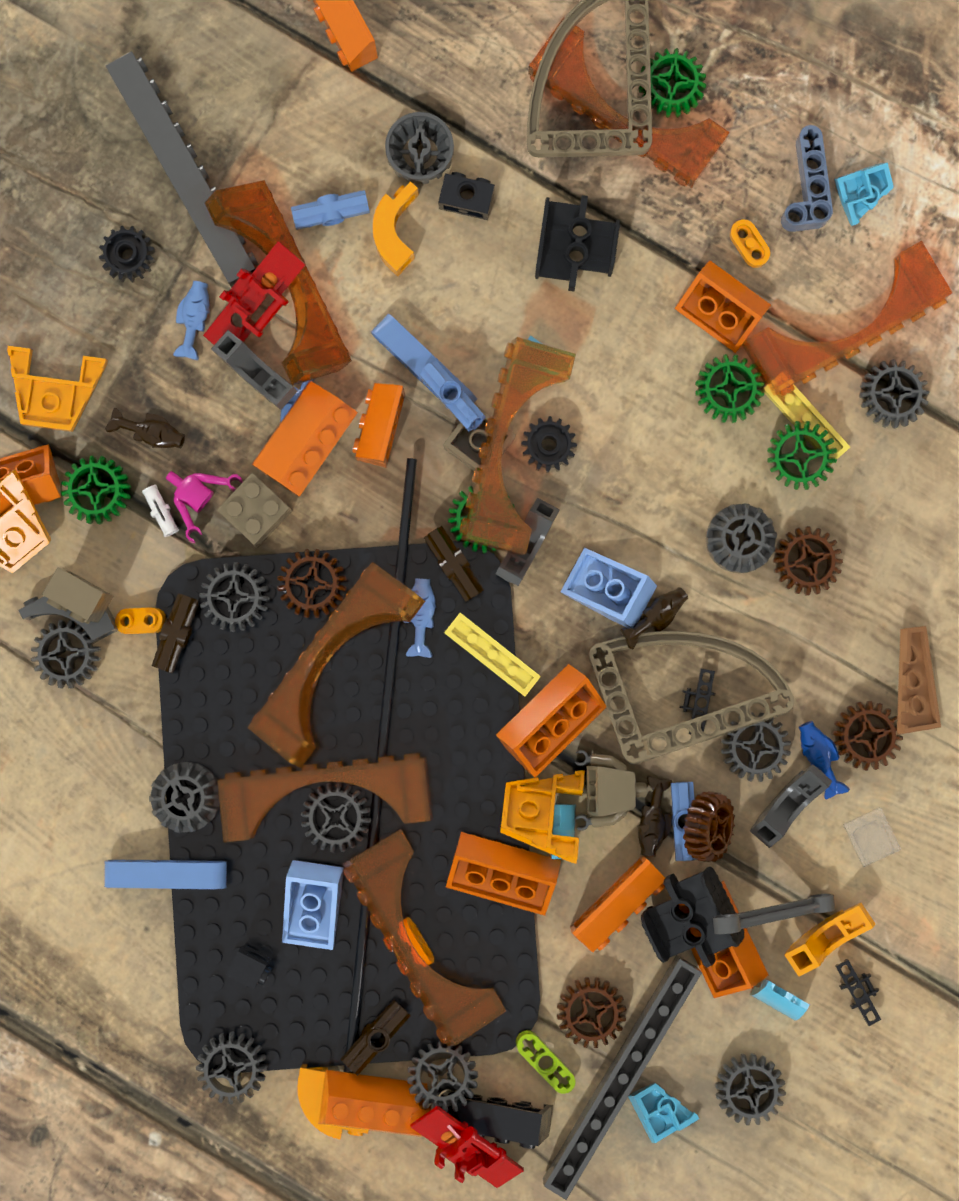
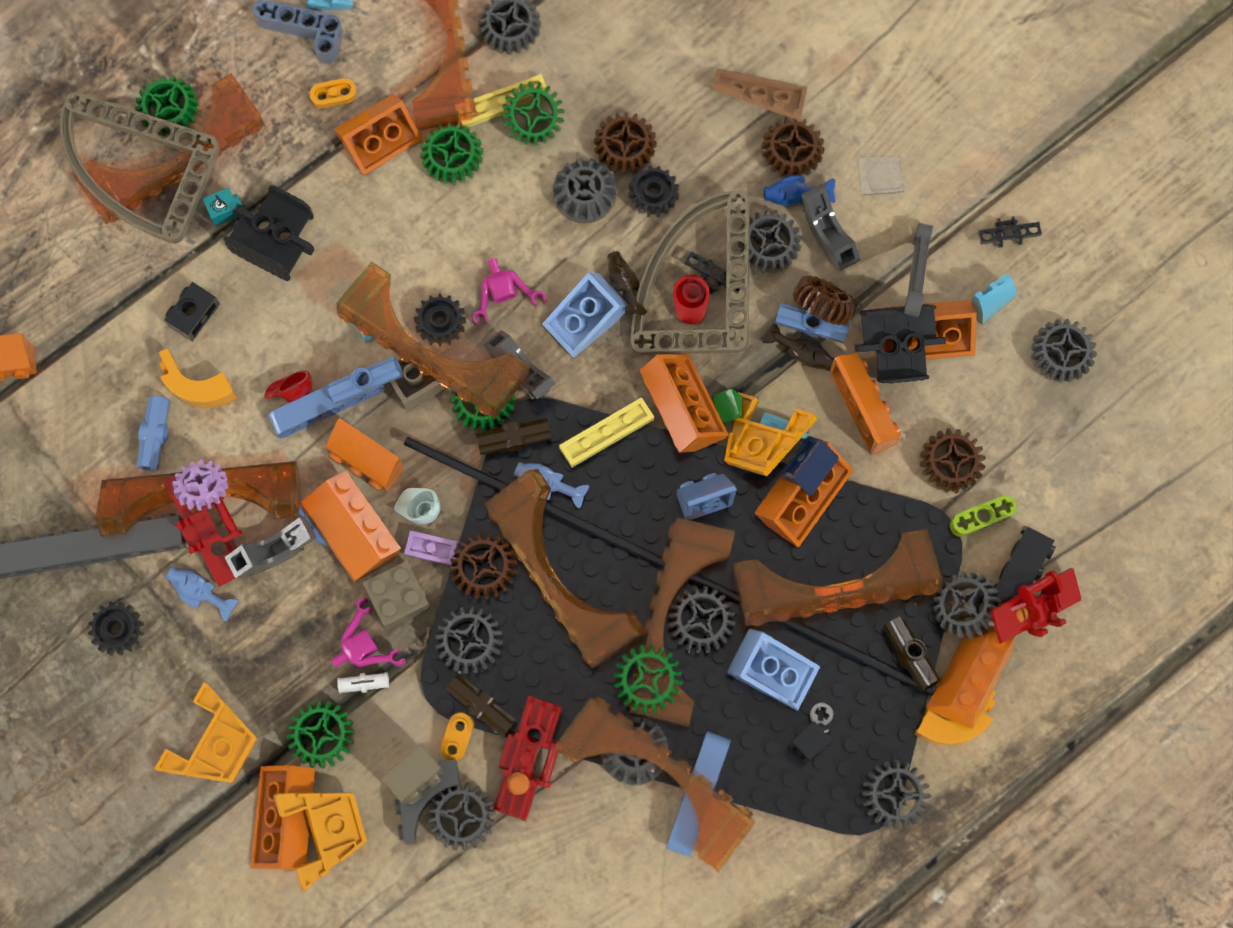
camera: 75 degrees left, 10 degrees down
(141, 688) = (519, 756): none -> red piece
(153, 431) = (287, 664): dark brown animal -> none
(184, 765) = (719, 820): none -> clear orange arch
(259, 795) = (667, 668): none -> green gear
(288, 289) = (200, 485): none -> lavender gear
(291, 972) = (828, 711): none -> light grey bush
(314, 524) = (430, 548): none -> lavender plate
(350, 496) = (418, 505): none -> light aqua piece
(413, 128) = (122, 322): dark grey gear -> none
(425, 324) = (291, 387): none -> red piece
(460, 777) = (705, 496): none -> medium blue slope
(526, 872) = (810, 465): none -> dark blue panel
(565, 766) = (728, 405): none -> green slope
(586, 181) = (222, 206): none -> teal brick
(605, 493) = (502, 289): none -> dark pink piece
(609, 790) = (763, 375): dark tan torso -> none
(621, 1077) = (1017, 453): dark grey brick -> none
(660, 1112) = (1059, 435): medium azure slope -> none
(663, 689) = (691, 299): none -> red piece
(778, 602) = (655, 179): none -> black gear
(825, 937) = (955, 248): light orange arch -> none

